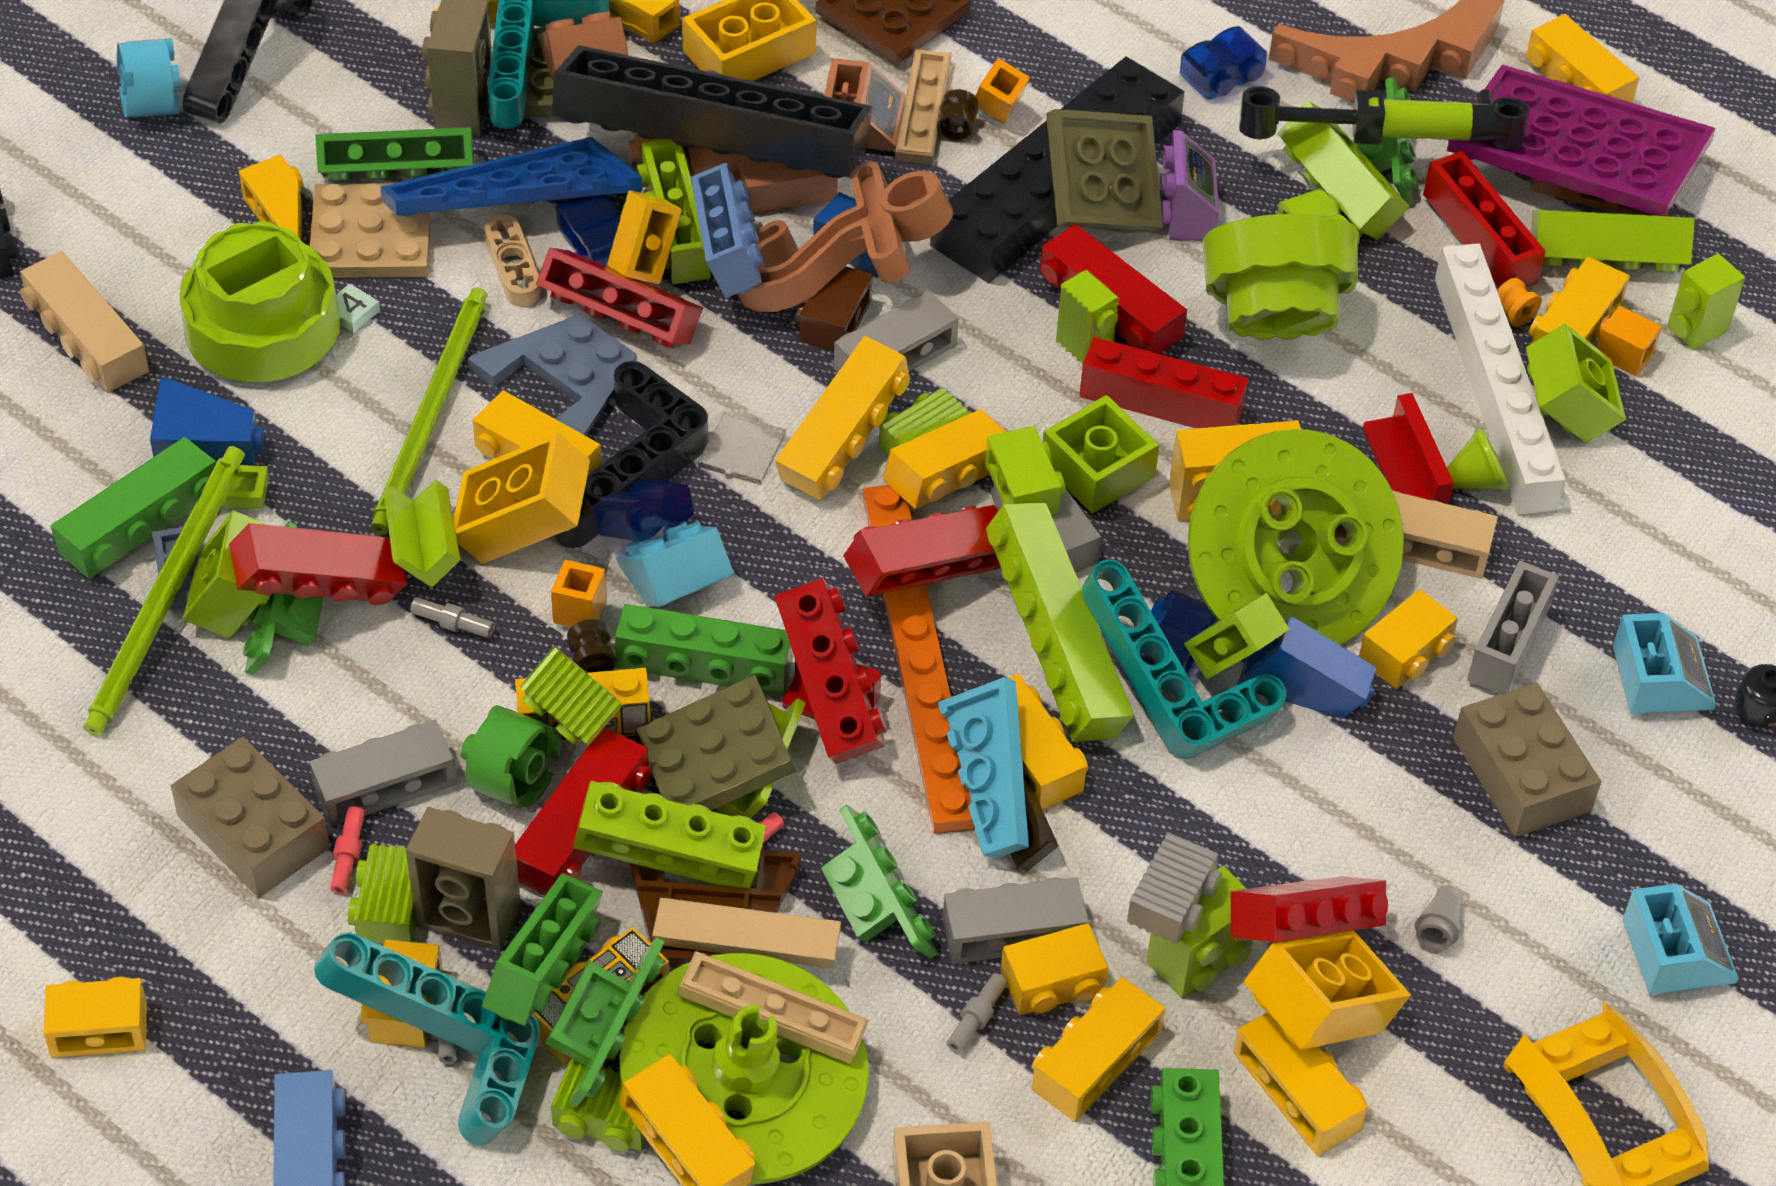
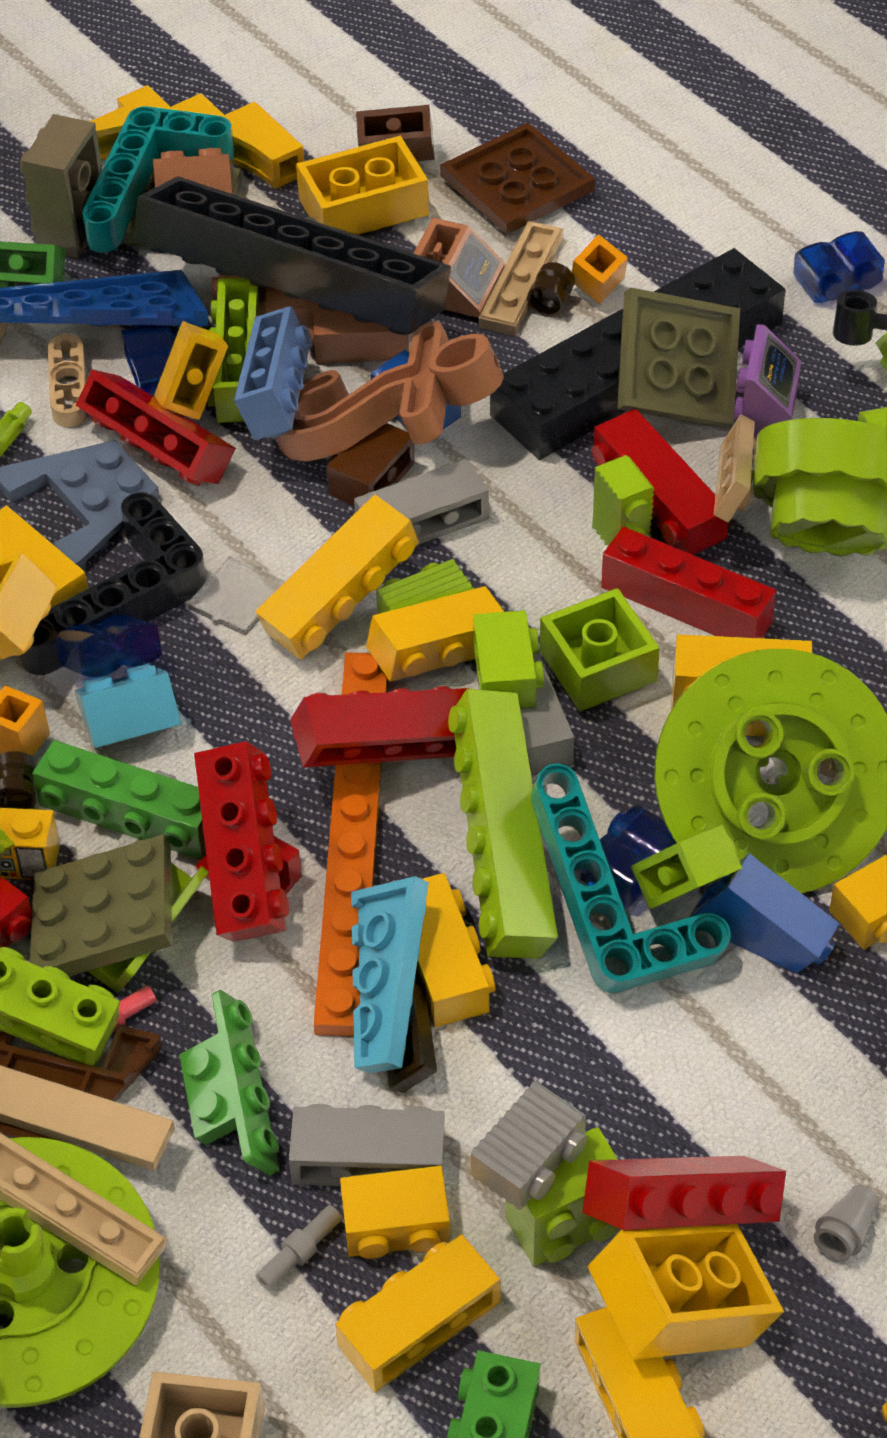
camera: 15 degrees right, 0 degrees up
(1182, 270) = (735, 469): none -> tan plate

